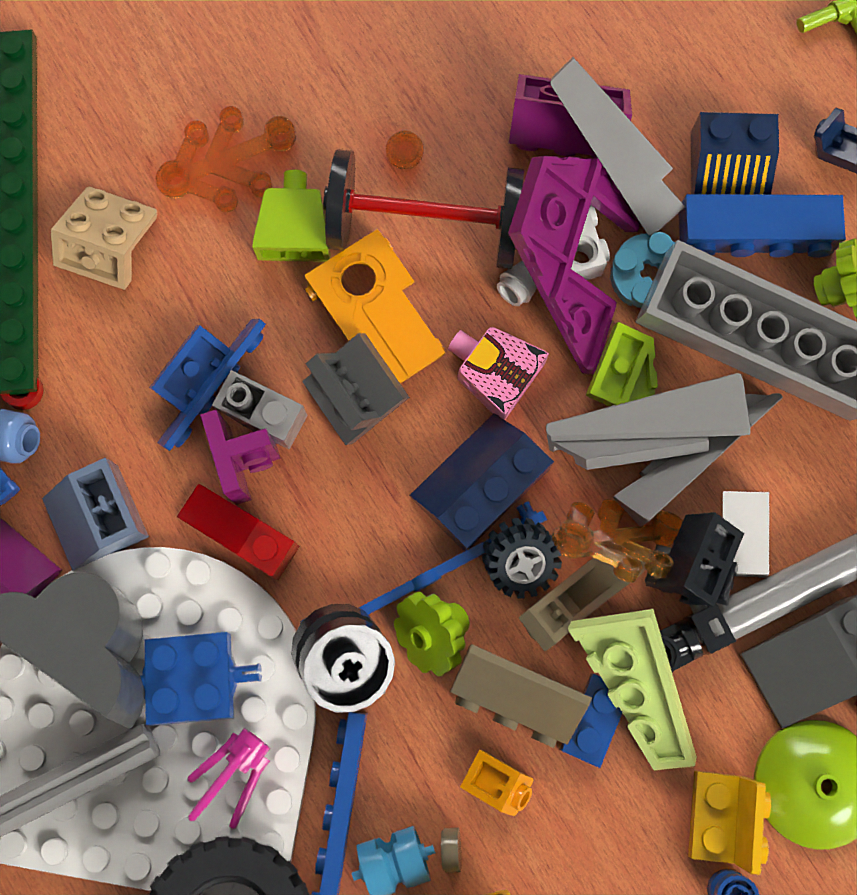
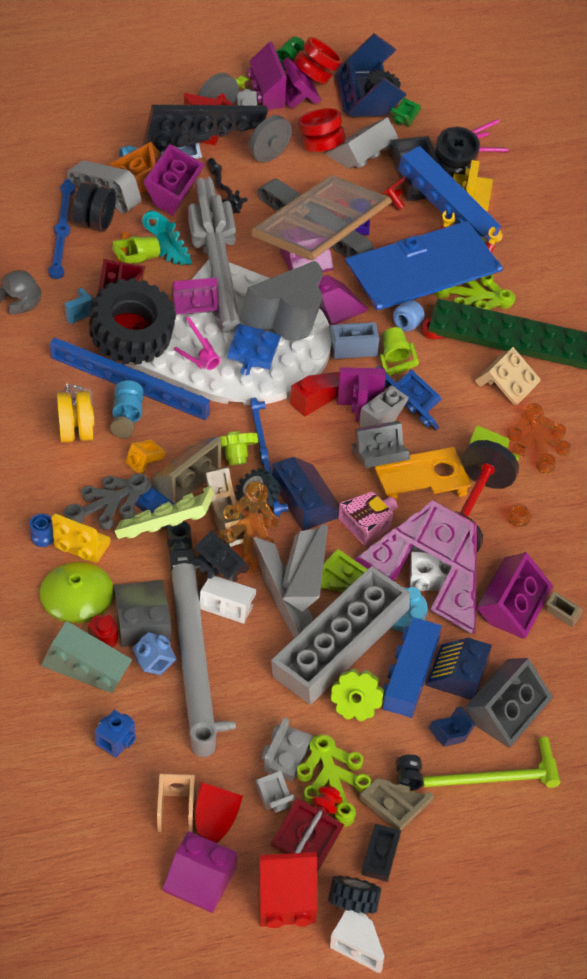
camera: 105 degrees right, 30 degrees down
(96, 837) = (195, 296): none -> magenta bracket
(97, 434) = (397, 350): none -> lime piece
(342, 658) = (238, 402): wheel -> none
(570, 25) = (566, 605): none -> dark tan piece
(619, 146) = (480, 590): light grey wedge -> none
(624, 799) = (133, 488): none -> dark grey plant
(764, 82) = (509, 701): none -> dark grey slope

